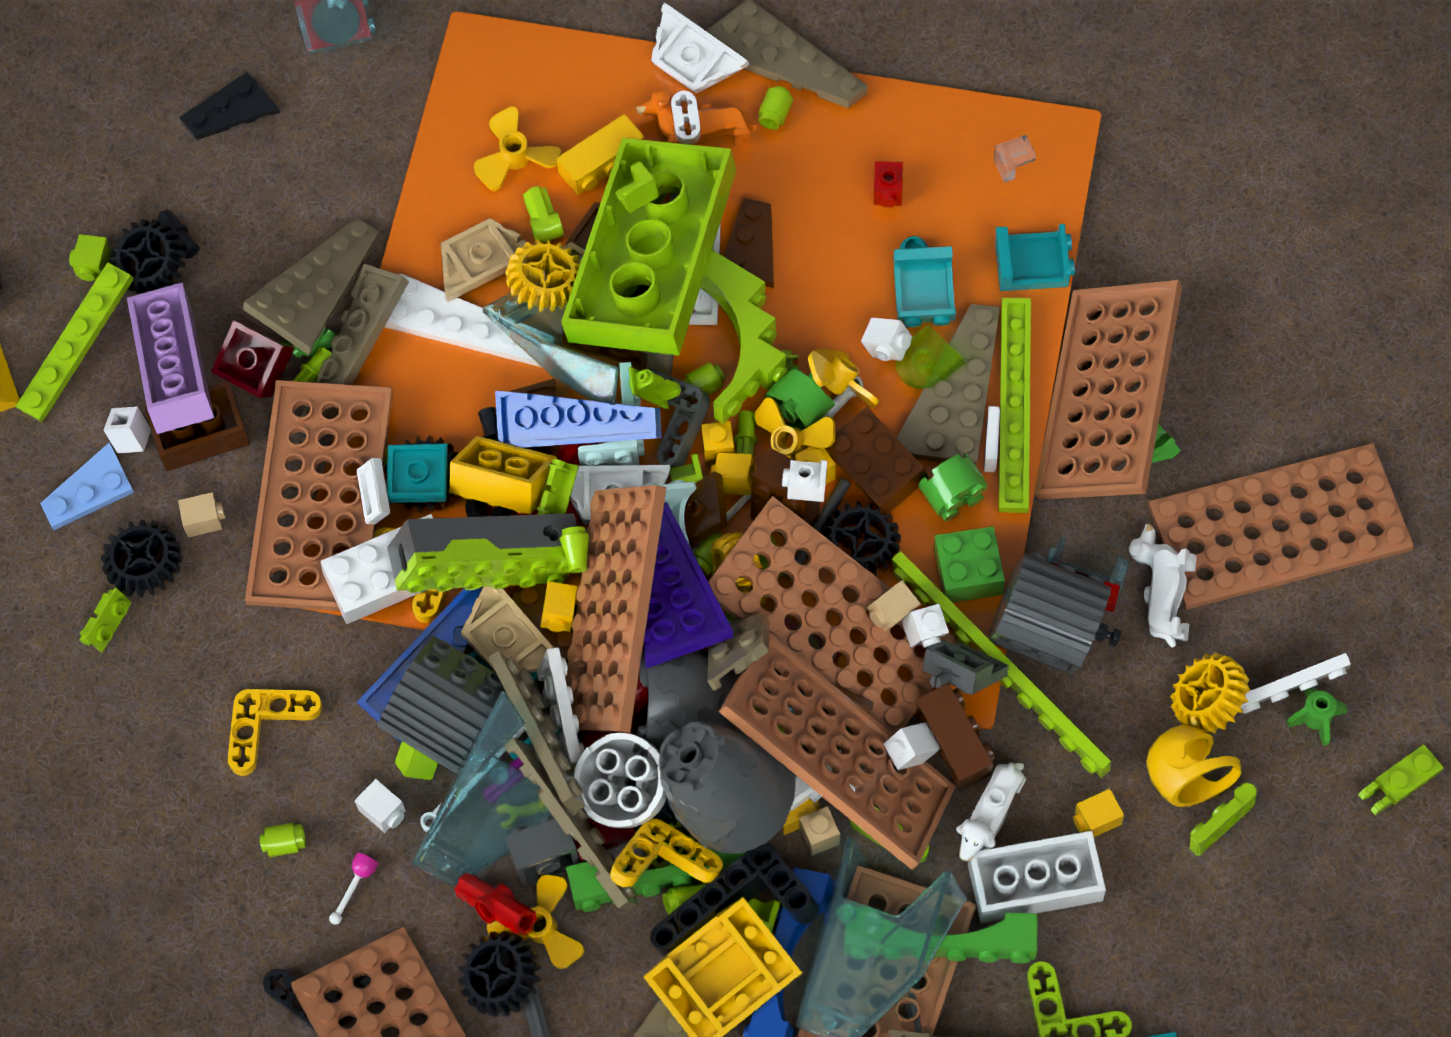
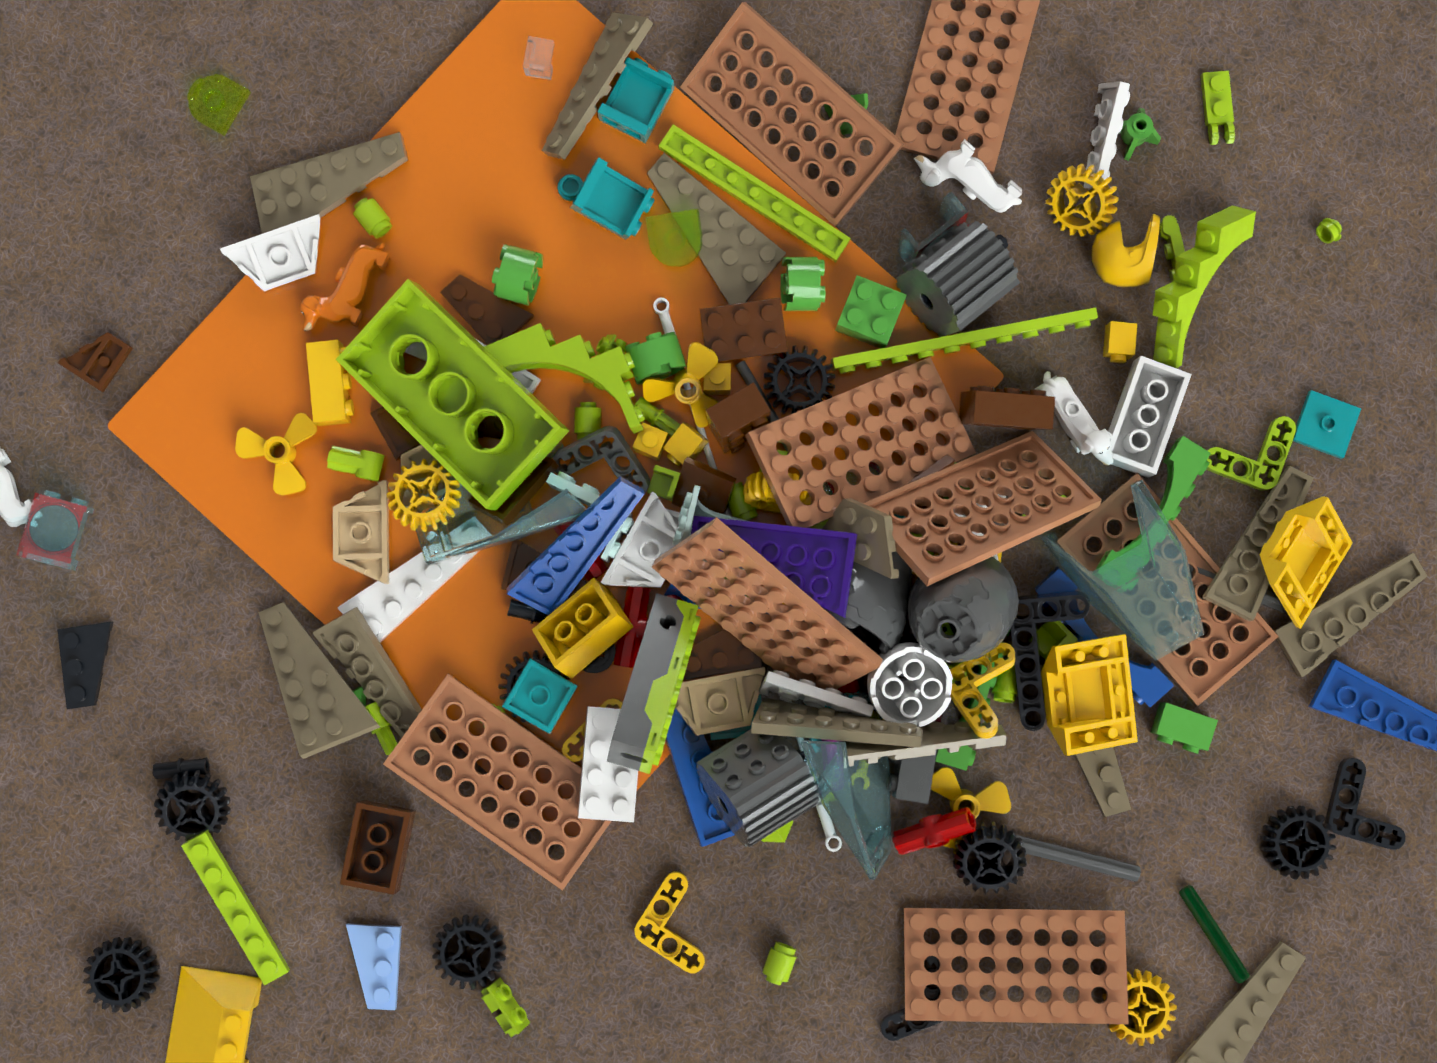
camera: 65 degrees left, 20 degrees up
(89, 256) = (160, 854): lime brick -> none
(127, 429) = (346, 906): white brick -> none
(170, 358) = (309, 841): lavender brick -> none
(201, 514) = (459, 883): tan brick -> none
(252, 358) = (346, 772): dark red brick -> none
(363, 867) = (837, 913): hinge -> none
(373, 491) = (535, 739): white tile -> none
(381, 806) = (798, 873): white brick -> none
(558, 488) = (625, 594): lime hinge -> none
(558, 607) = (722, 648): yellow brick -> none
(575, 547) = (693, 610): lime cone -> none
(639, 191) = (400, 377): lime panel -> none
(652, 387) = (581, 467): lime hinge -> none
(691, 117) = (342, 302): white beam -> none
(800, 246) = (518, 274): none -> bright green brick
(805, 480) = (769, 395): white brick -> none
(819, 831) = (1017, 556): tan brick -> none
(837, 373) = (647, 314): yellow piece -> none
(886, 339) = (641, 257): white brick -> none
(888, 183) = (500, 171): red brick -> none
(892, 606) = (885, 393): tan brick -> none
(911, 746) = (999, 447): white brick -> none
(925, 626) = (913, 378): white brick -> none
(962, 667) = (963, 370): dark grey plate -> none
(992, 436) = (774, 229): white tile -> none
(1082, 210) = (617, 40): none -> dark tan wing
(1209, 829) = (1193, 270): none -> lime arch
(1351, 957) = (1329, 230): none -> lime plate

